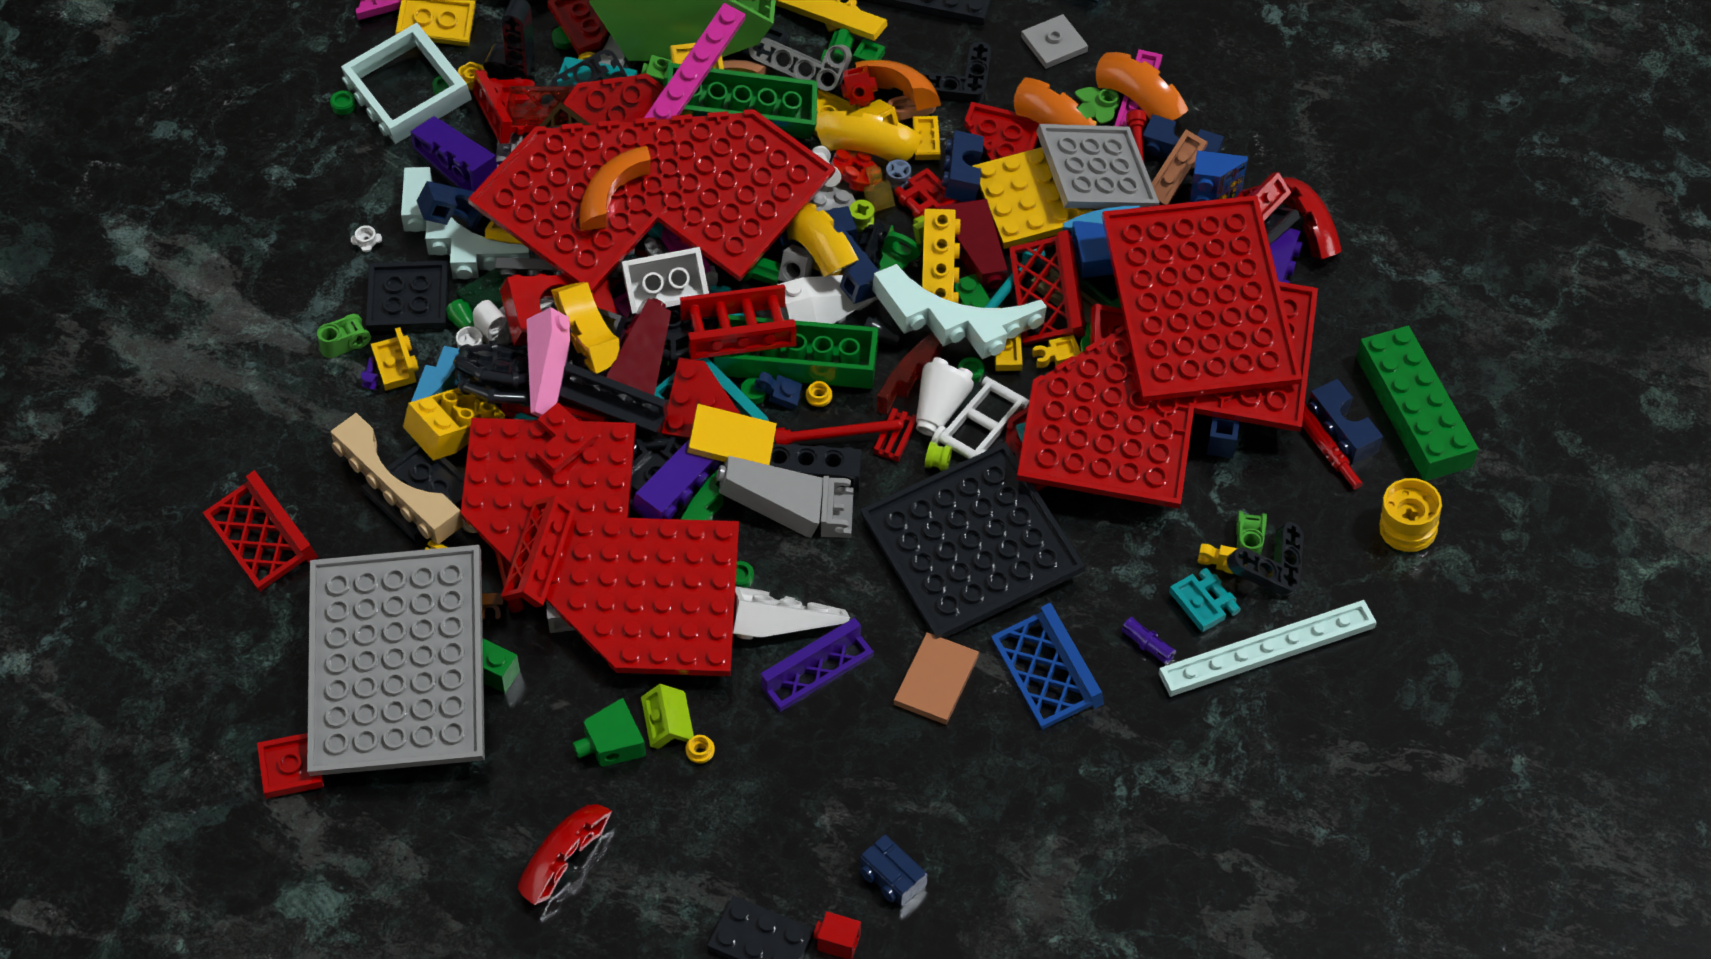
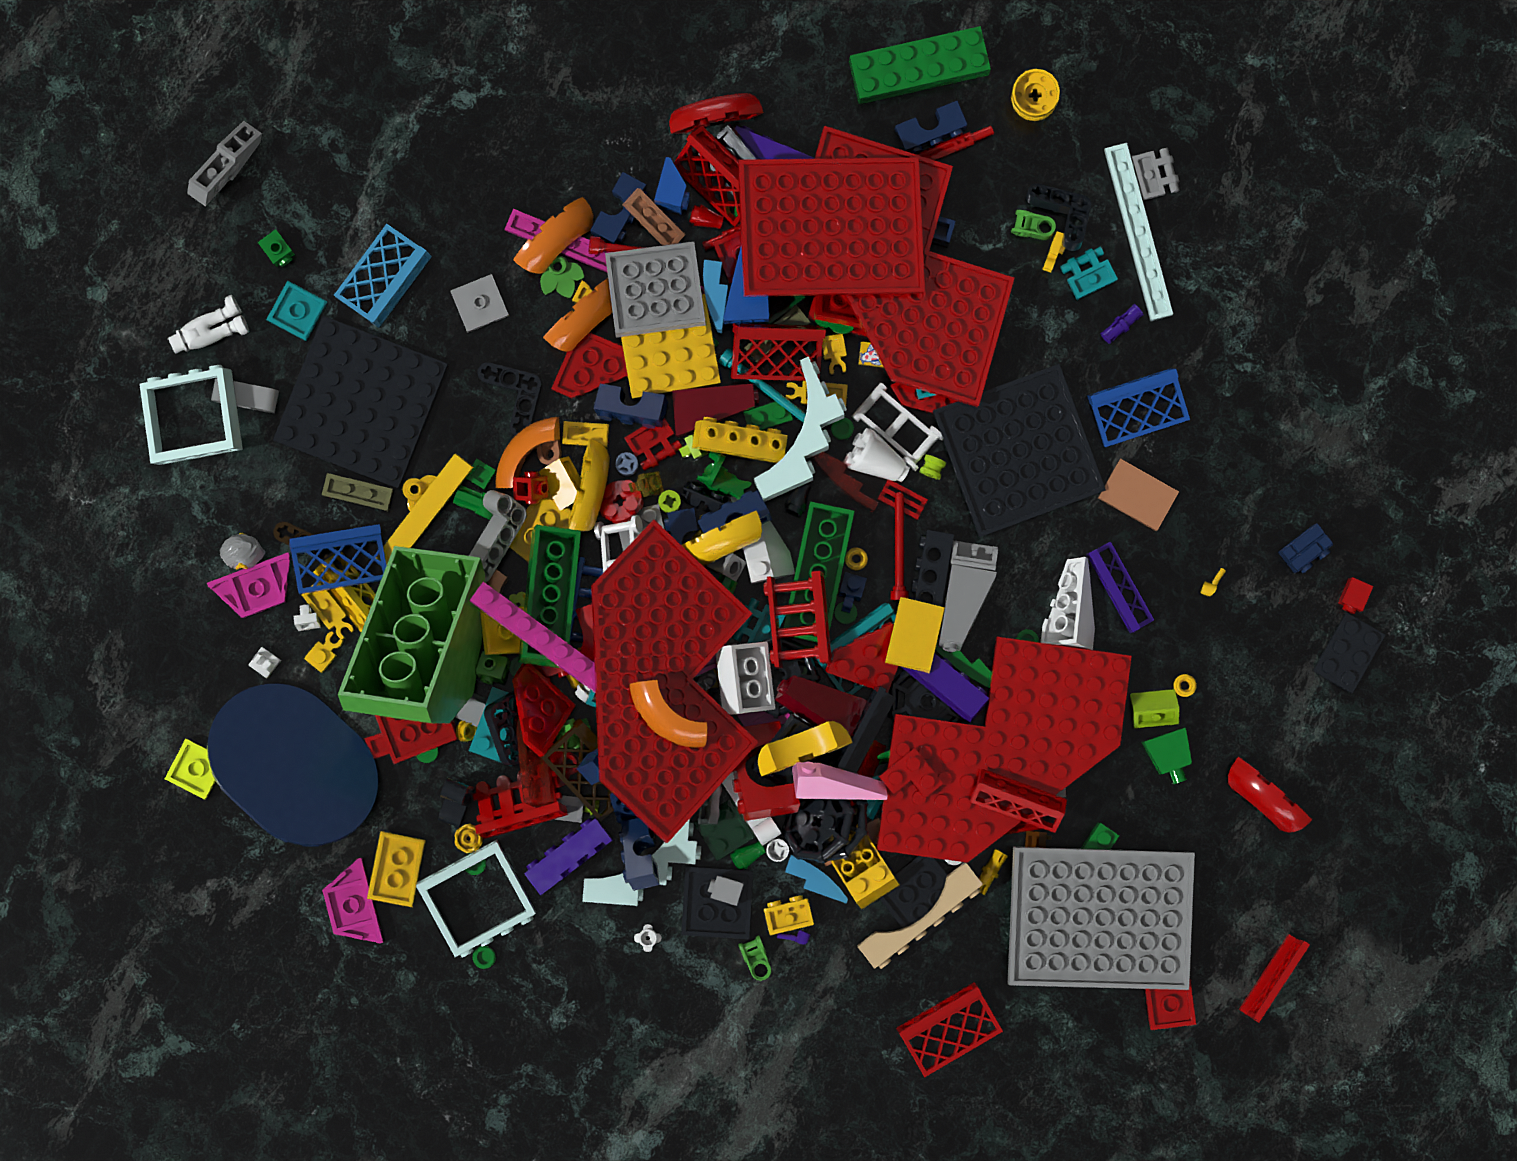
camera: 85 degrees left, 30 degrees up
(321, 877) = (1273, 977): none -> red fence
(420, 292) = (725, 890): none -> light grey brick
(827, 769) = (1208, 588): none -> yellow hand
(1343, 652) = (1149, 177): none -> light grey plate

